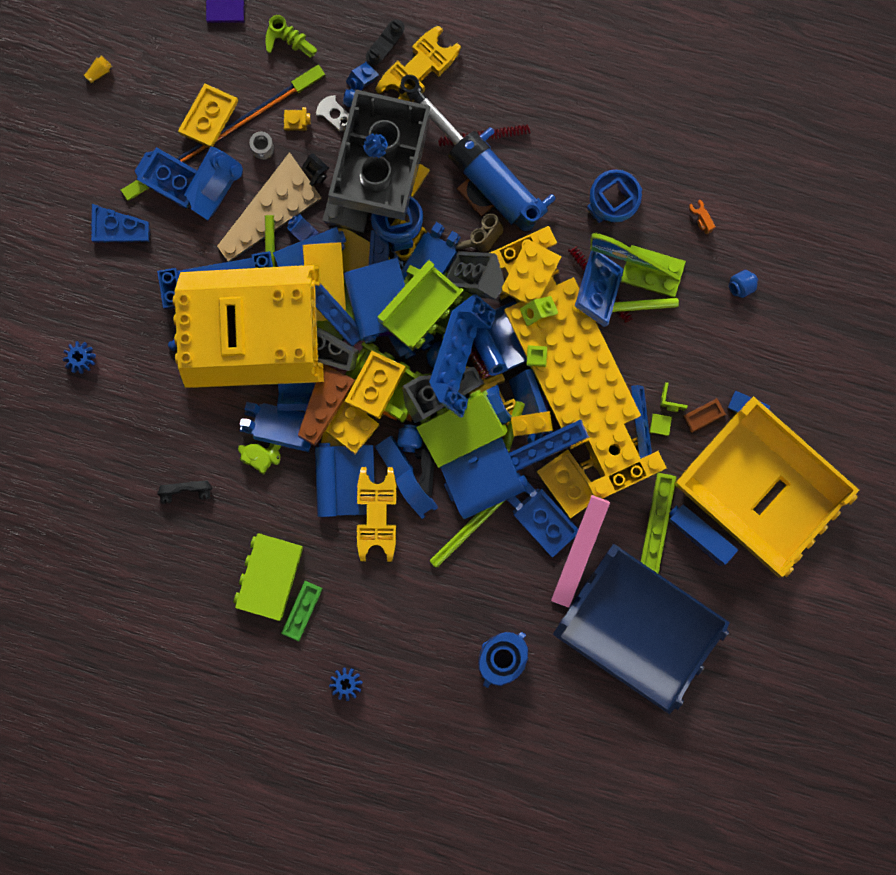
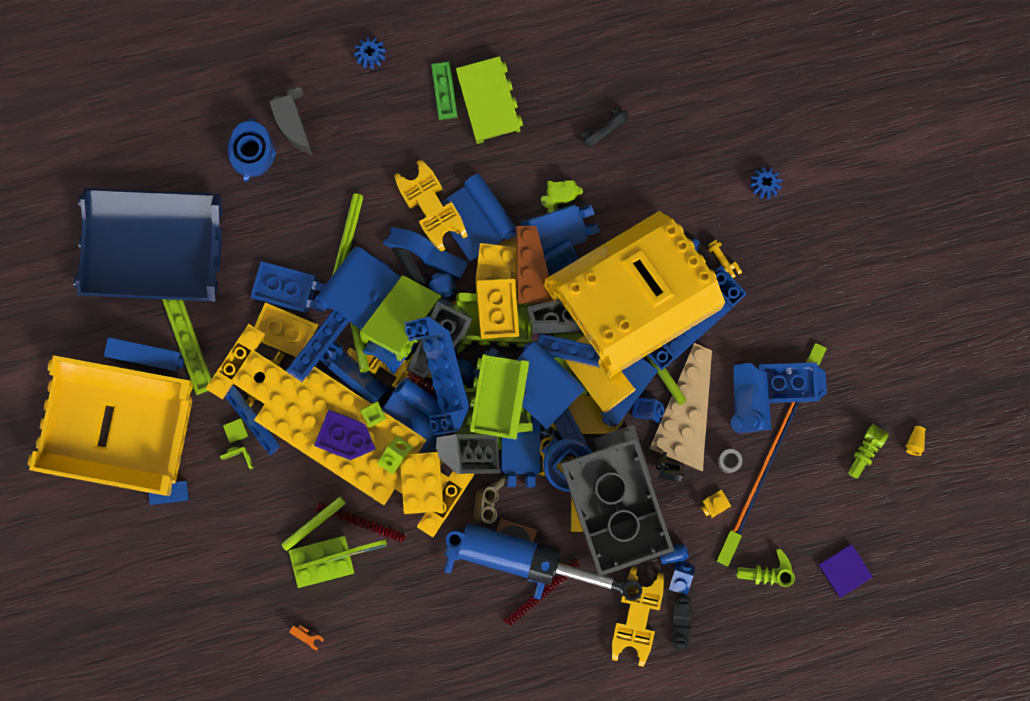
camera: 155 degrees right, 0 degrees up
(117, 227) = (809, 313): blue wing -> none
(129, 92) = (875, 438): none -> lime piece
(157, 331) = (714, 246): none -> yellow hinge
(208, 116) = (793, 458): yellow plate -> none
(329, 104) = (697, 531): white piece -> none
(375, 145) = (622, 507): blue gear -> none
(453, 664) = (289, 120): none -> dark grey piece
(531, 423) = (343, 356): yellow plate -> none
(573, 352) = (344, 436): none -> dark purple tile
(580, 551) = (238, 277): bright pink tile -> none
(599, 288) = (356, 510): blue tile -> none
(600, 206) = (384, 621): blue piece -> none
(704, 415) = (202, 462): dark orange tile -> none
(743, 283) = (235, 598): blue head -> none

